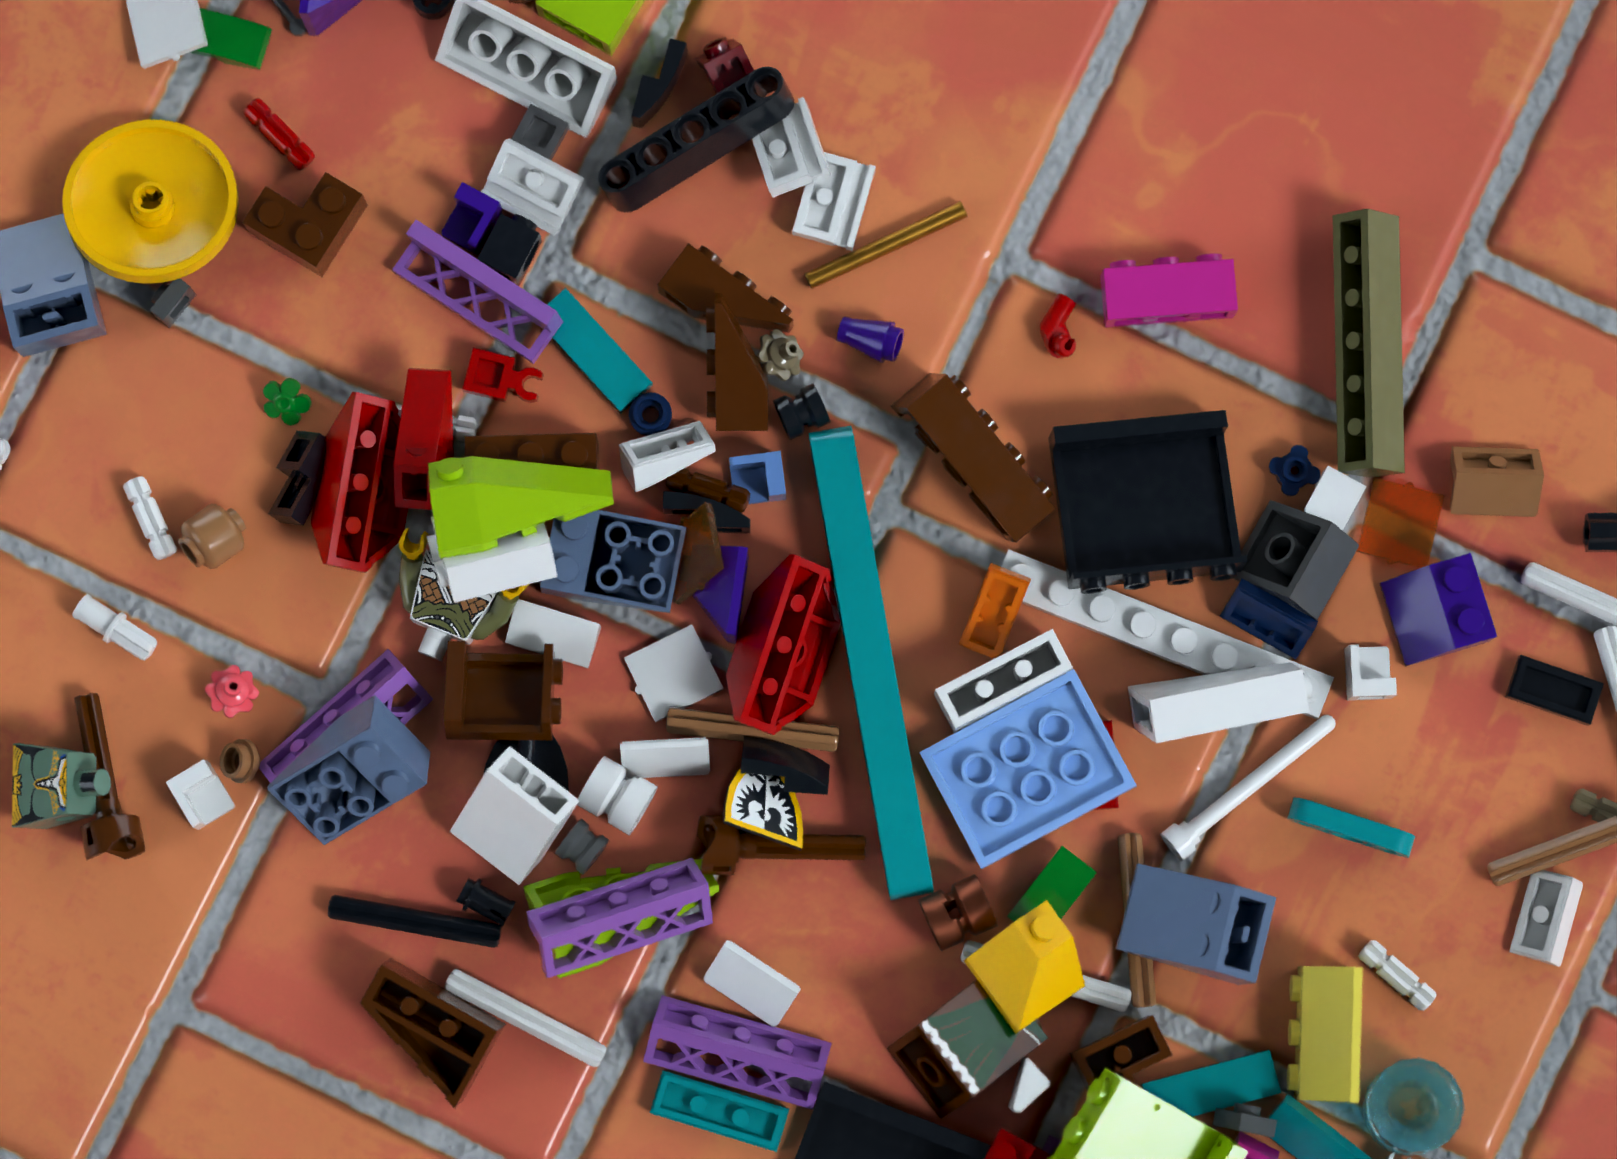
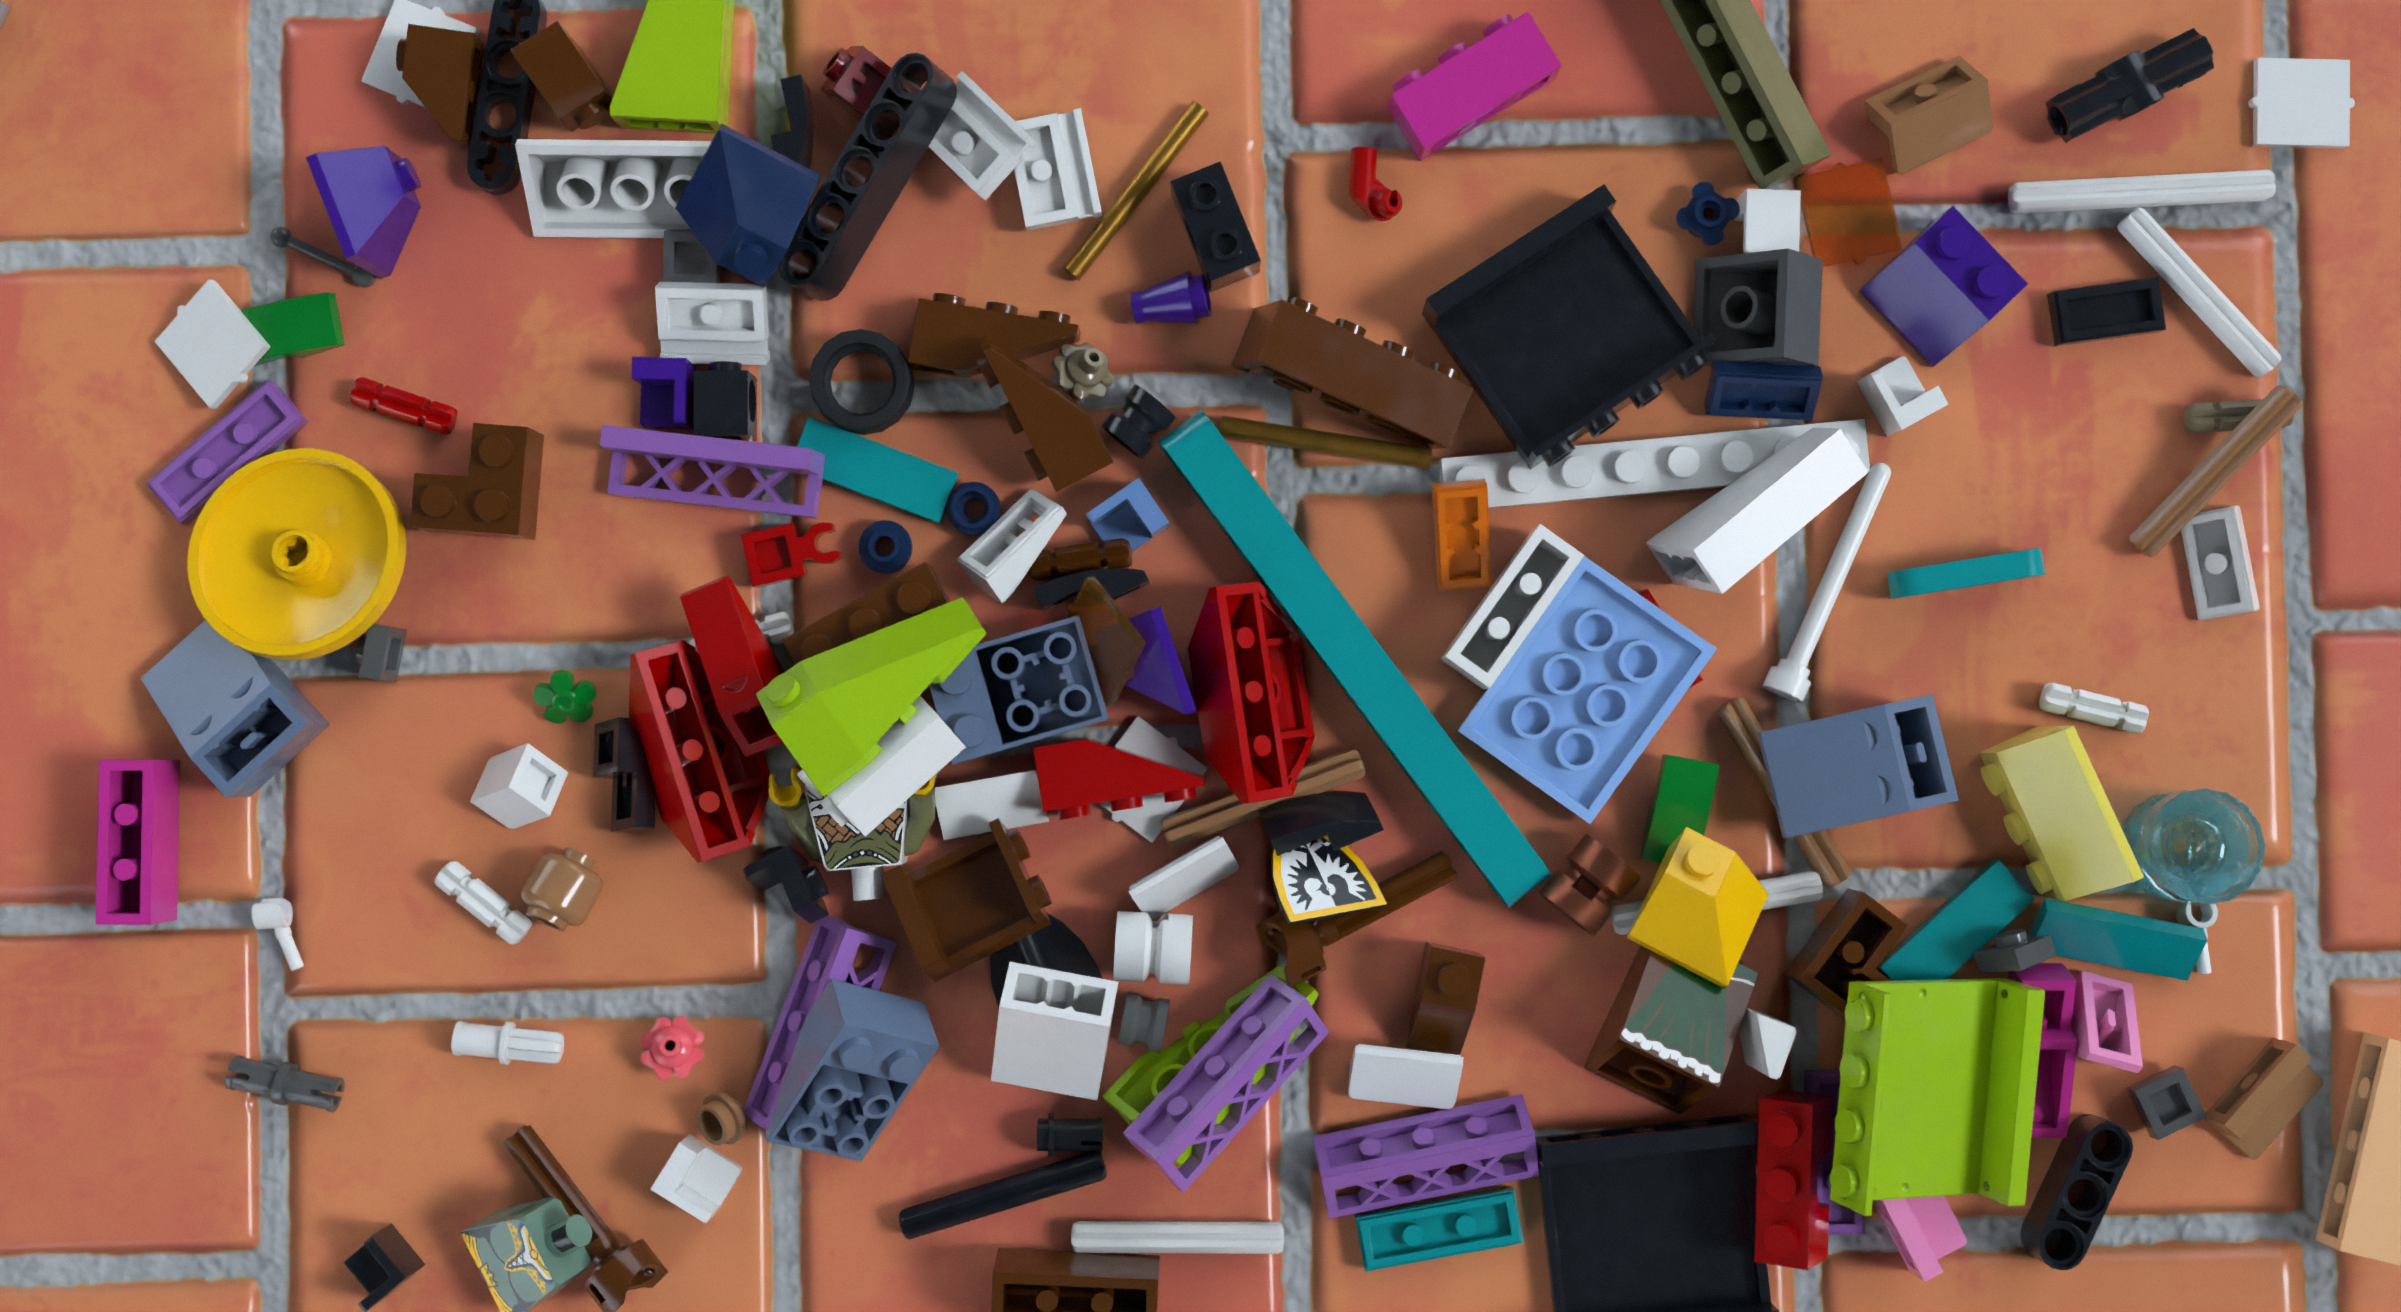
camera: 30 degrees left, 5 degrees up
(147, 98) = (241, 436): none -> medium lavender tile
(220, 447) = (519, 786): none -> white panel
(382, 602) = (801, 882): none -> black bracket
(576, 422) = (902, 547): none -> dark blue plate
(599, 115) = (746, 203): none -> dark blue slope
(611, 250) = (829, 357): none -> black tyre
(636, 646) = (1096, 772): none -> red slope
(810, 942) = (1445, 999): none -> reddish brown slope
(929, 299) = (1215, 226): none -> black brick
(930, 495) = (1326, 442): none -> pearl gold bar

